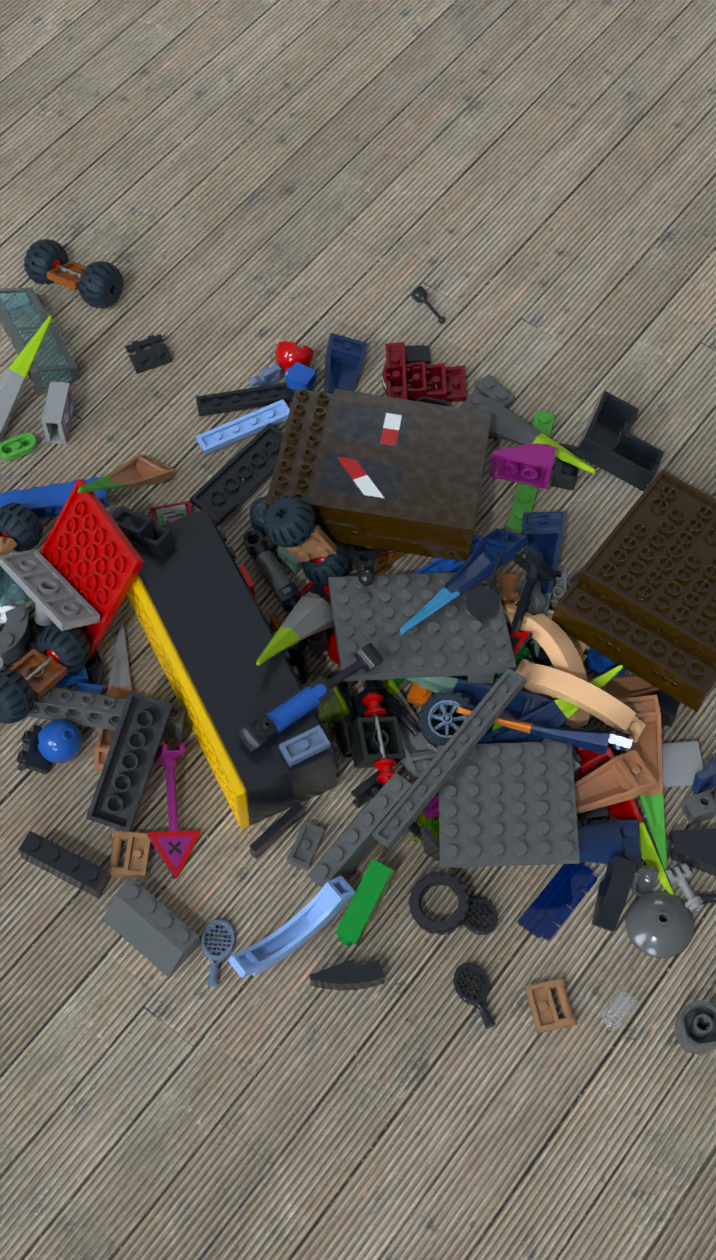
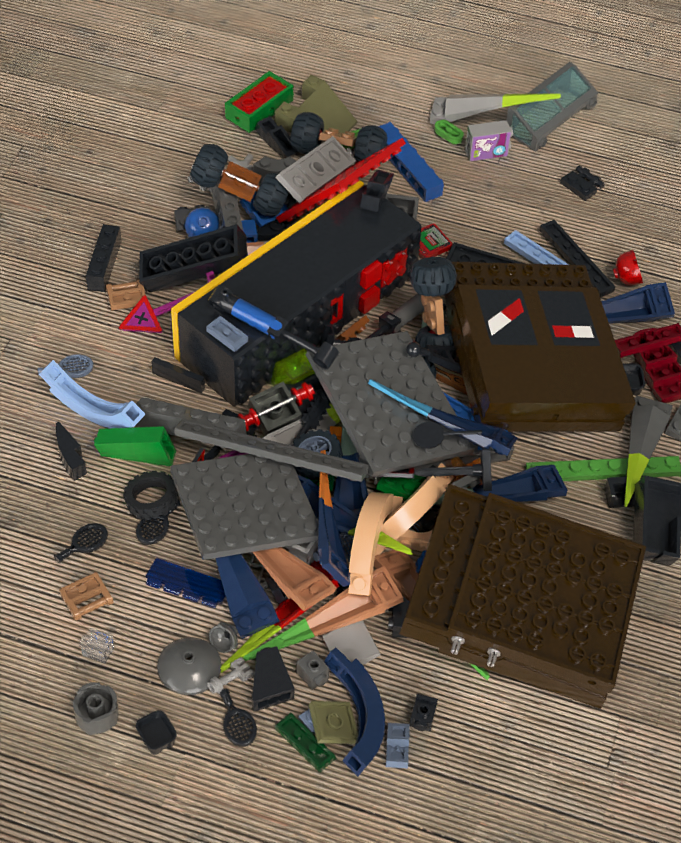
camera: 70 degrees right, 10 degrees down
(98, 283) = (625, 123): black plate -> none
(135, 472) = (457, 200): nougat plate -> none
(151, 928) = (72, 323): dark grey slope -> none
(267, 376) = (601, 259): sand blue plate -> none
(300, 377) = (607, 276): blue brick -> none
(305, 846) = (173, 395): dark grey plate -> none
(307, 618) = (355, 323): light grey plate -> none
(524, 464) = (602, 449): magenta slope -> none
(613, 892) = (201, 615): black slope -> none

